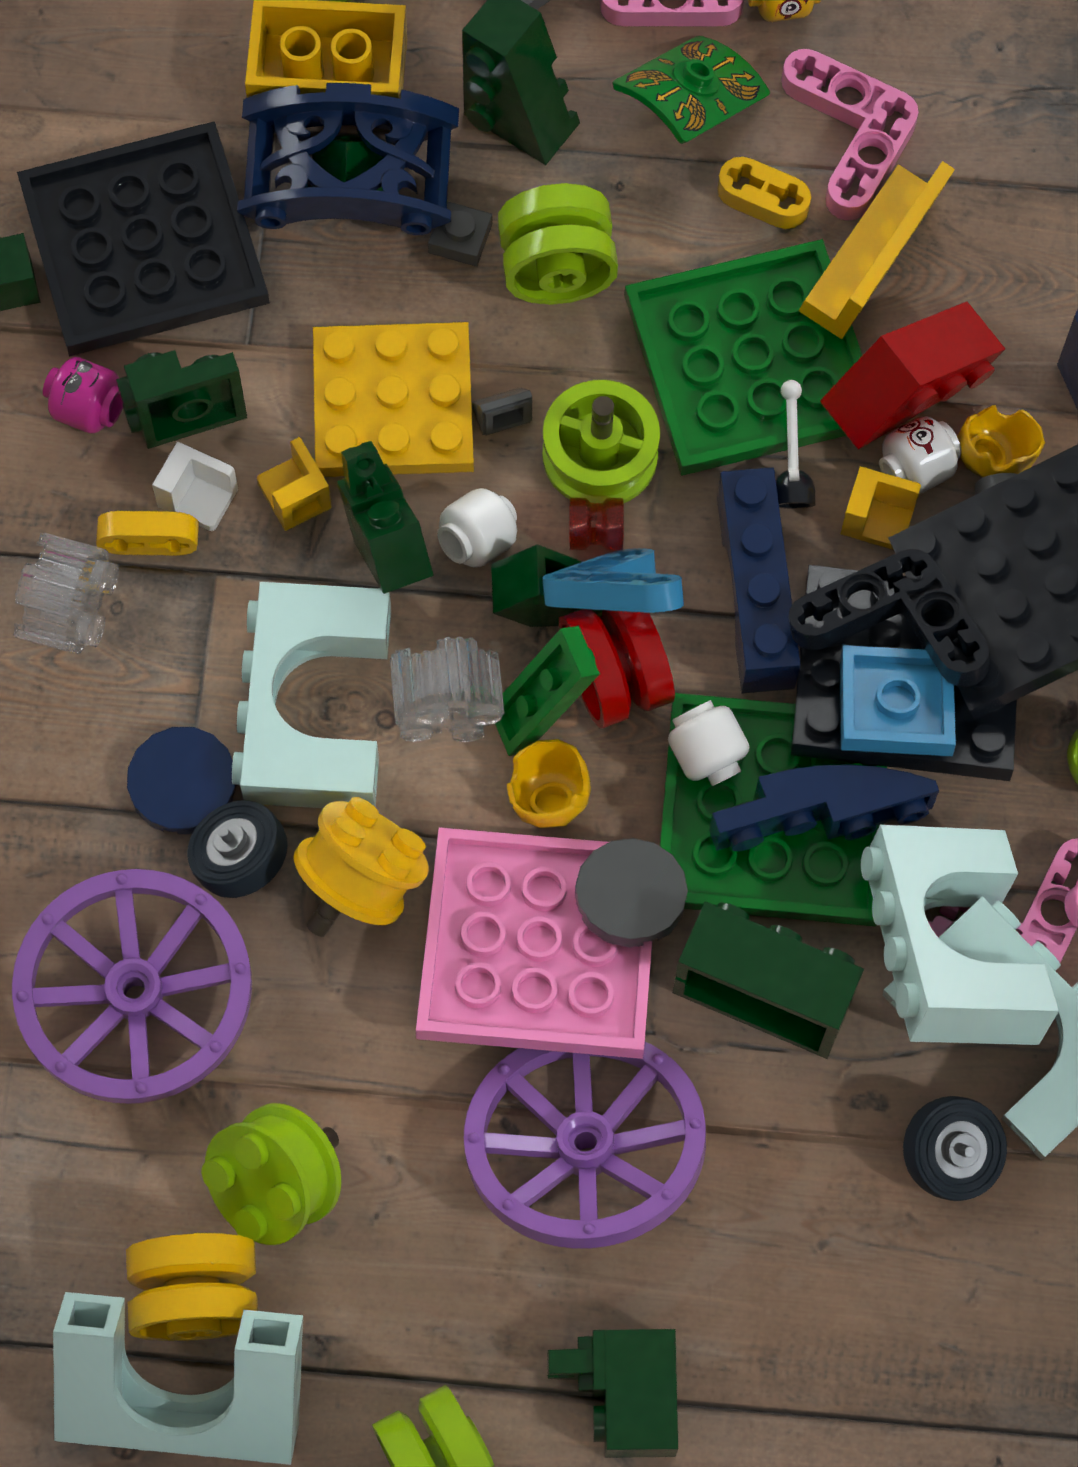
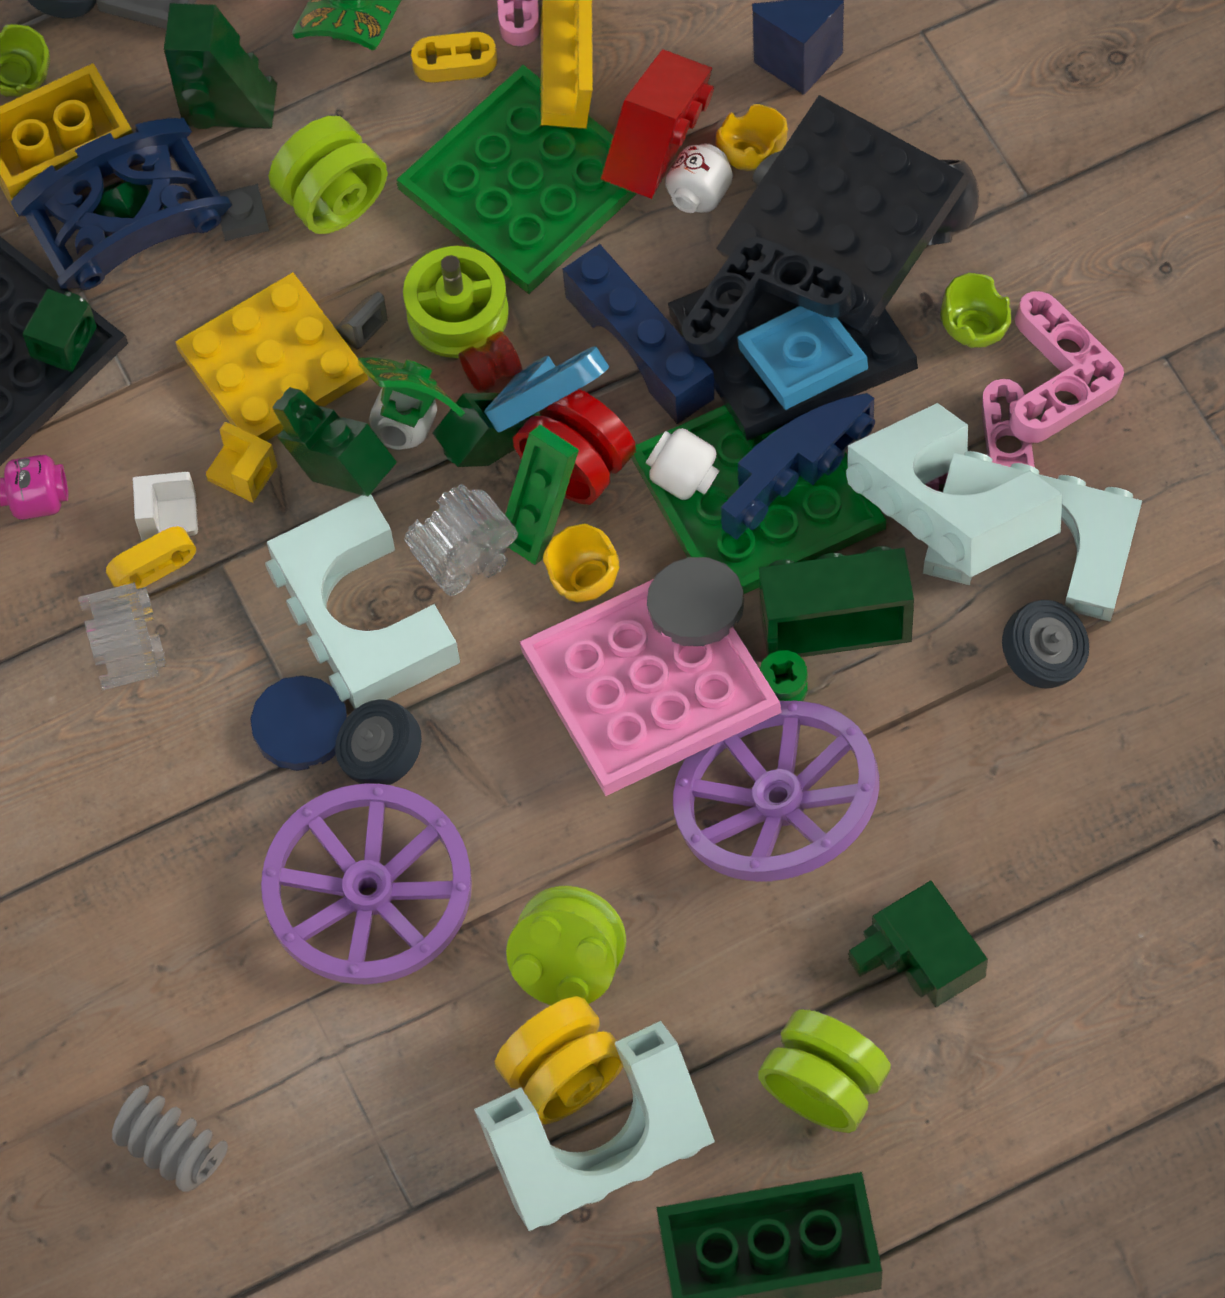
camera: 25 degrees left, 5 degrees down
(180, 401) = (111, 447): dark green plate -> none
(205, 253) = (60, 329): none -> dark green brick
(359, 865) = (482, 698): yellow wheel -> none
(494, 500) = (408, 379): none -> green shield
(673, 1034) = (792, 686): none -> green wheel
(793, 486) = (620, 249): hinge -> none
(879, 507) = (692, 233): yellow panel -> none

